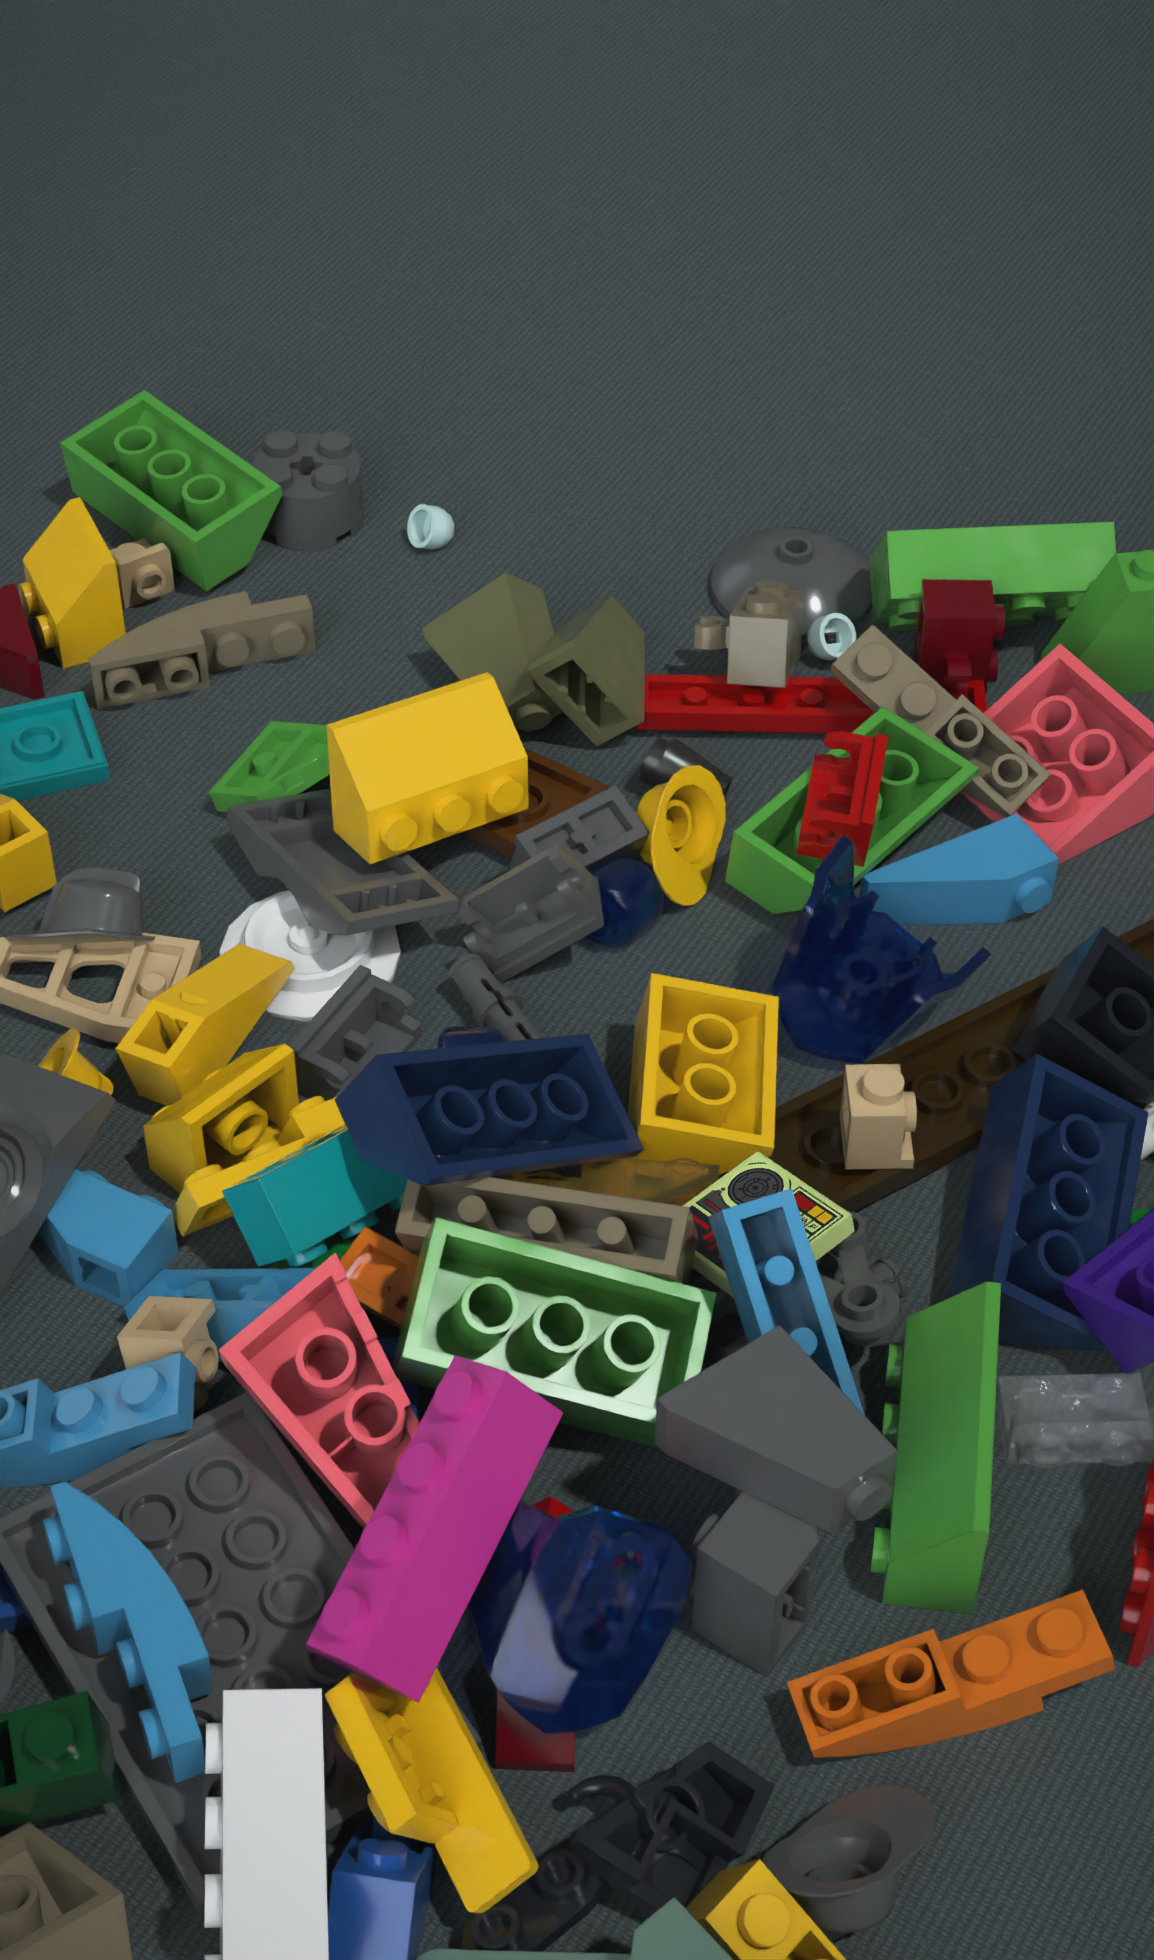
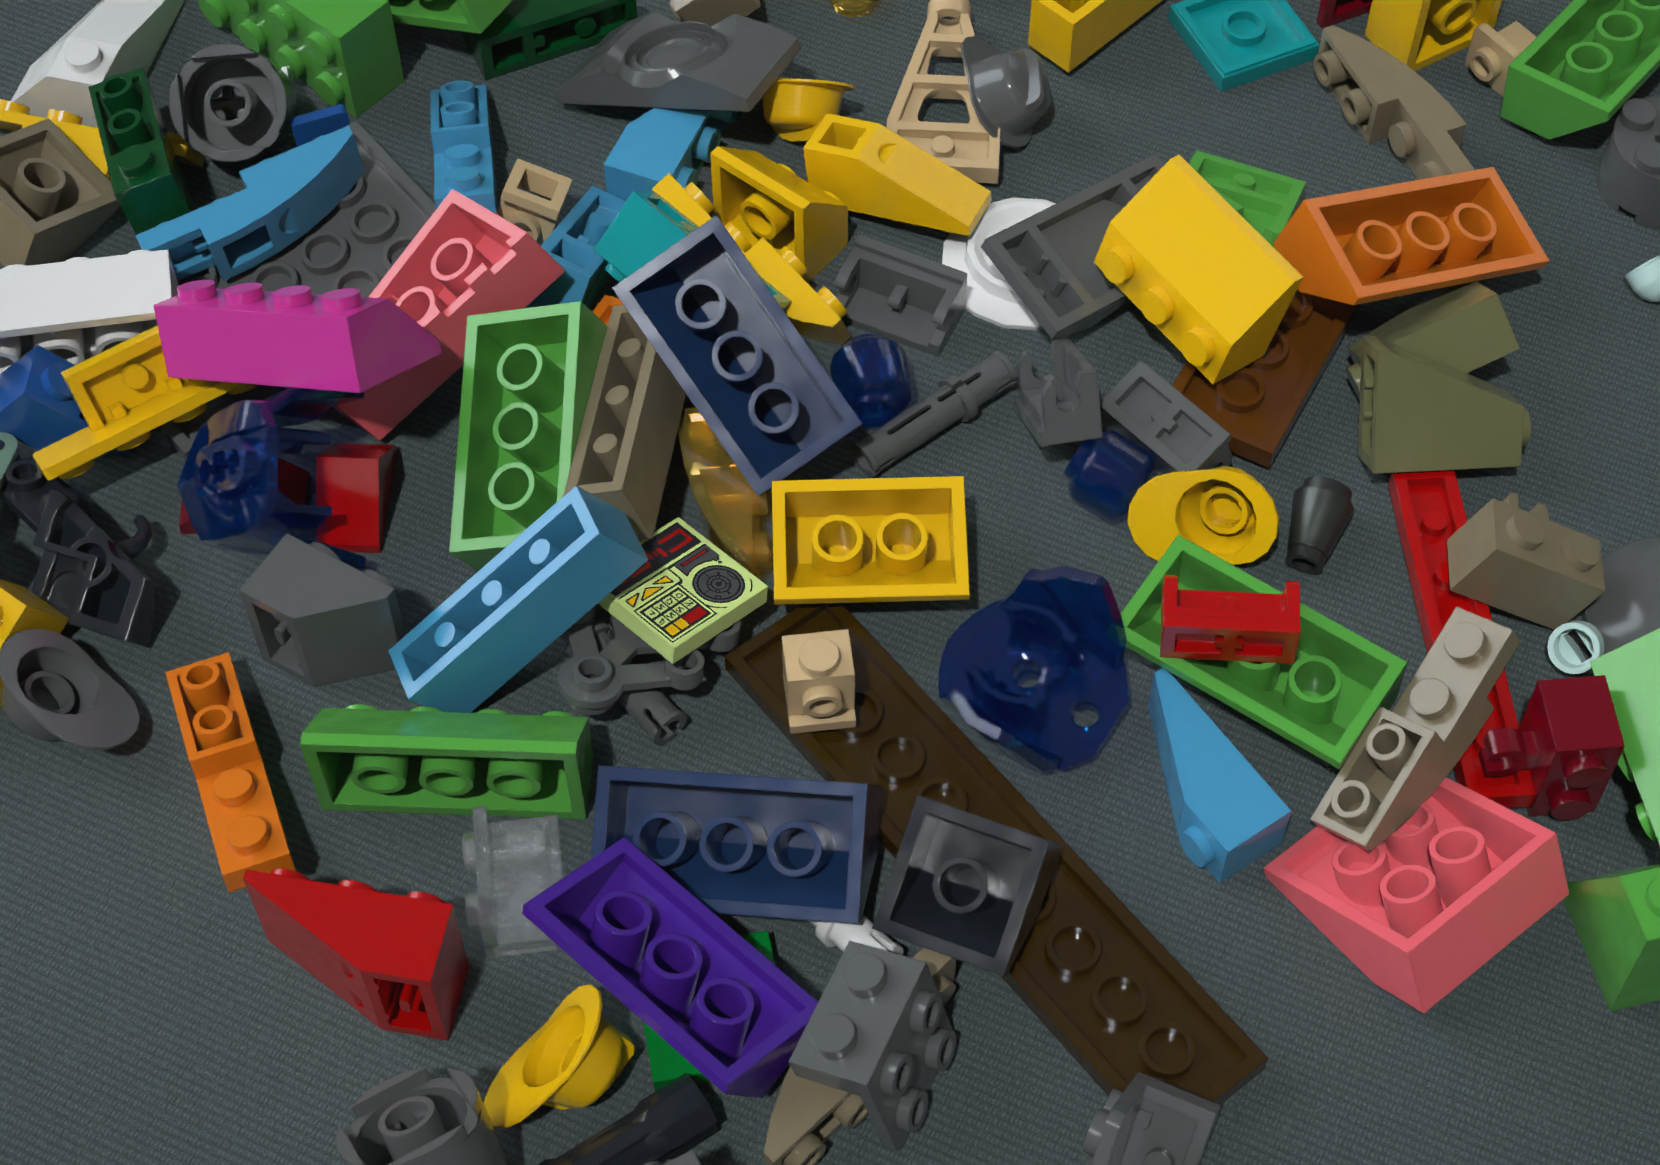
camera: 85 degrees right, 10 degrees up
(397, 633) = (1409, 238): none -> orange slope
(780, 1434) = (374, 569): dark grey slope -> none

